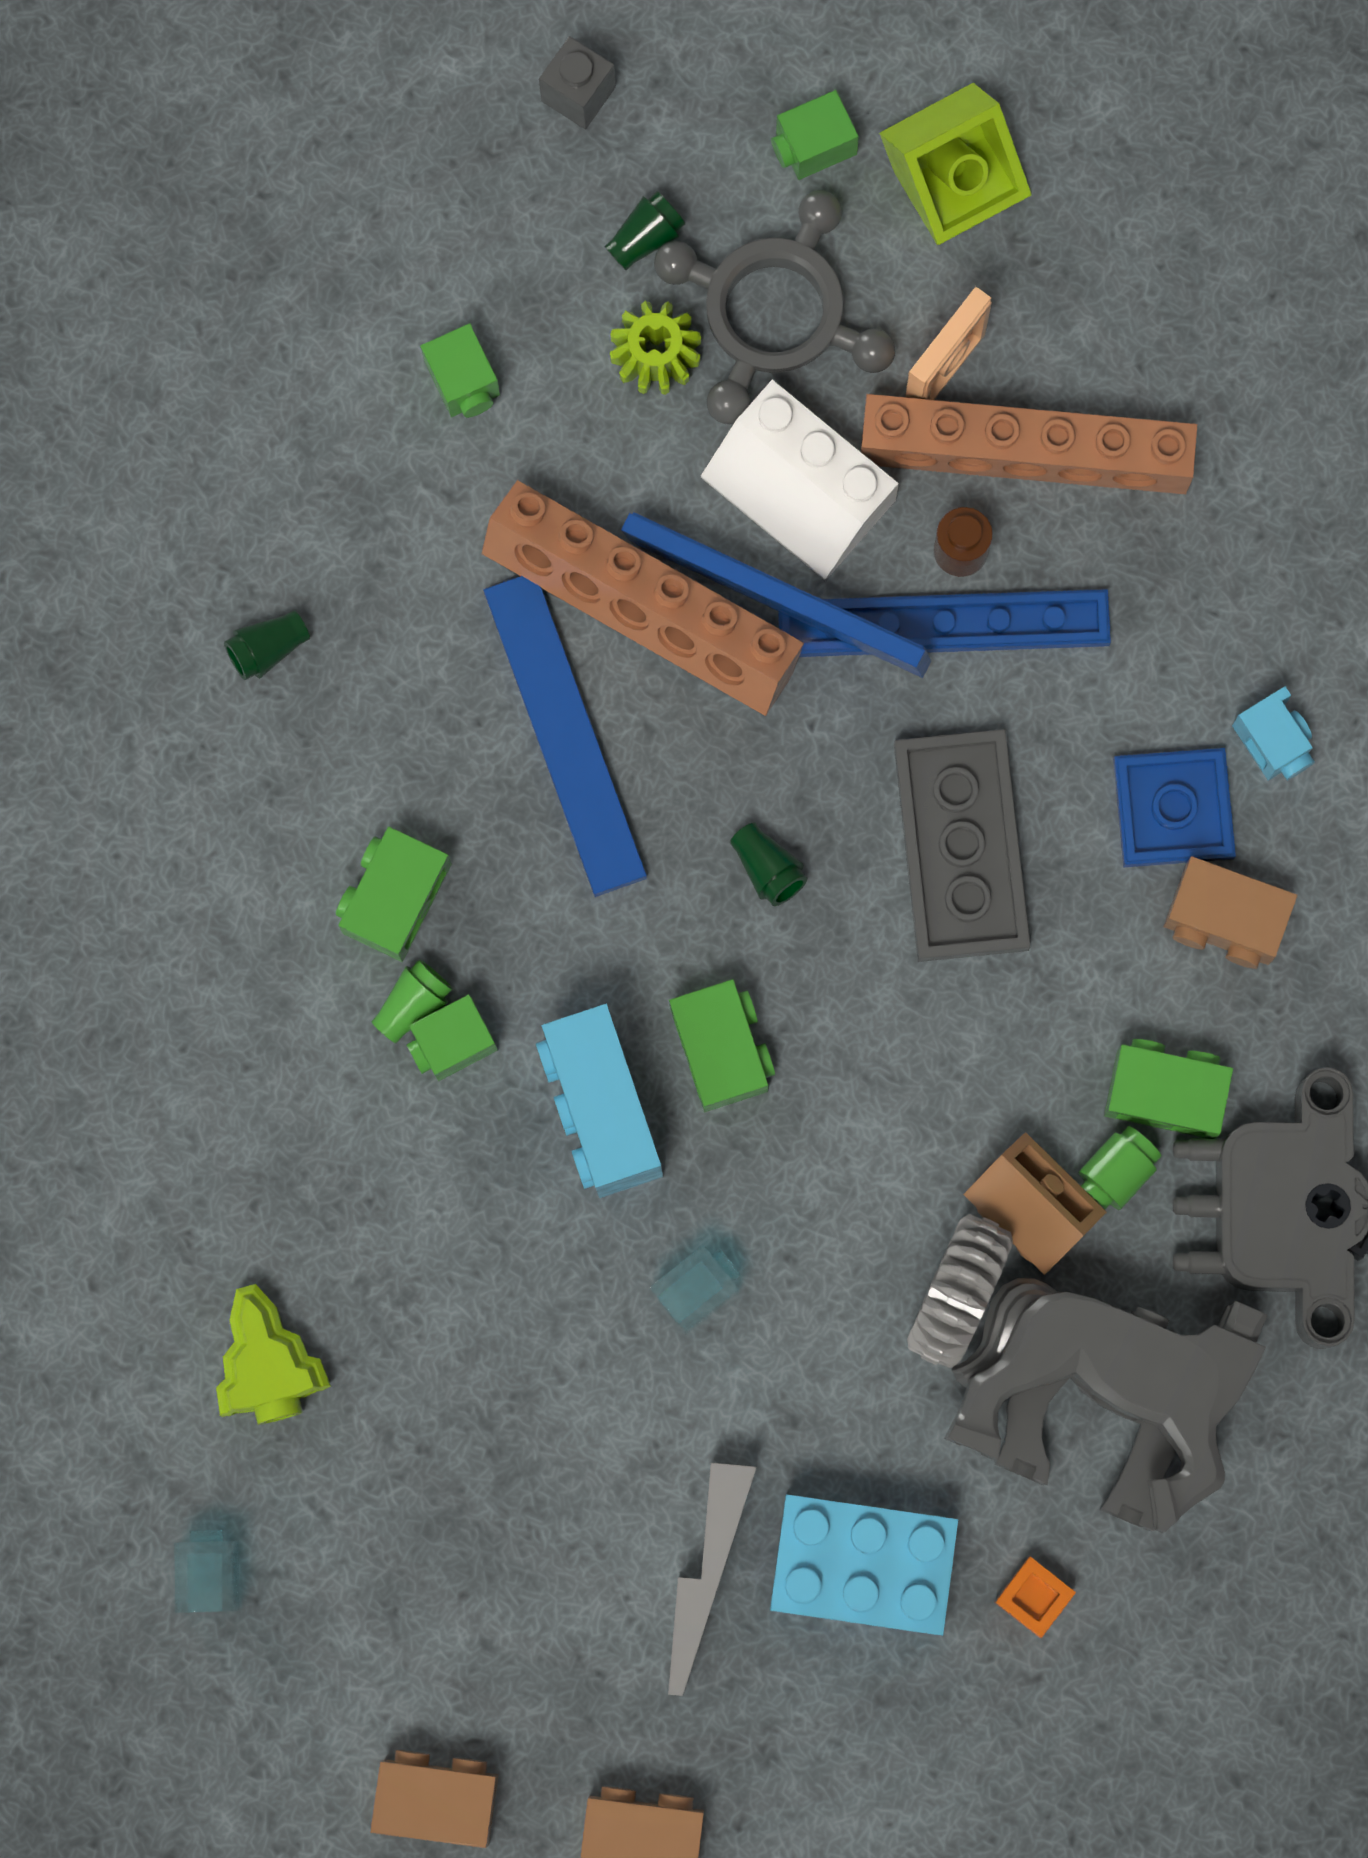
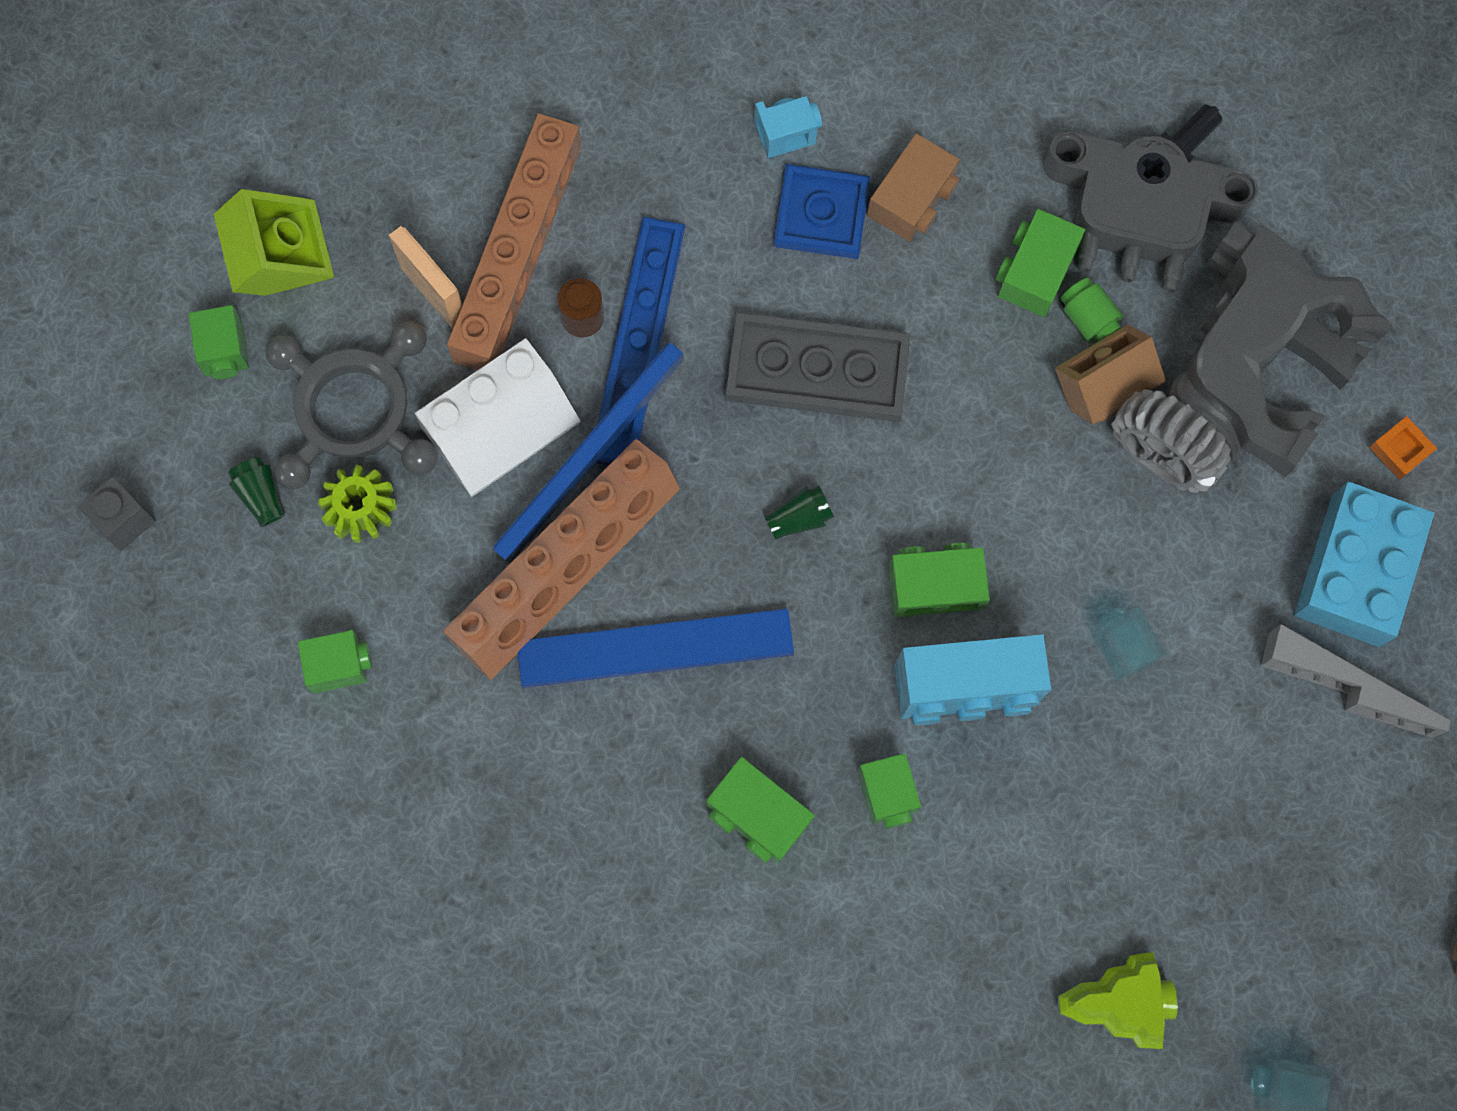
camera: 85 degrees left, 5 degrees down
(264, 644) = (522, 876): dark green cone -> none
(413, 997) = (849, 817): bright green cone -> none

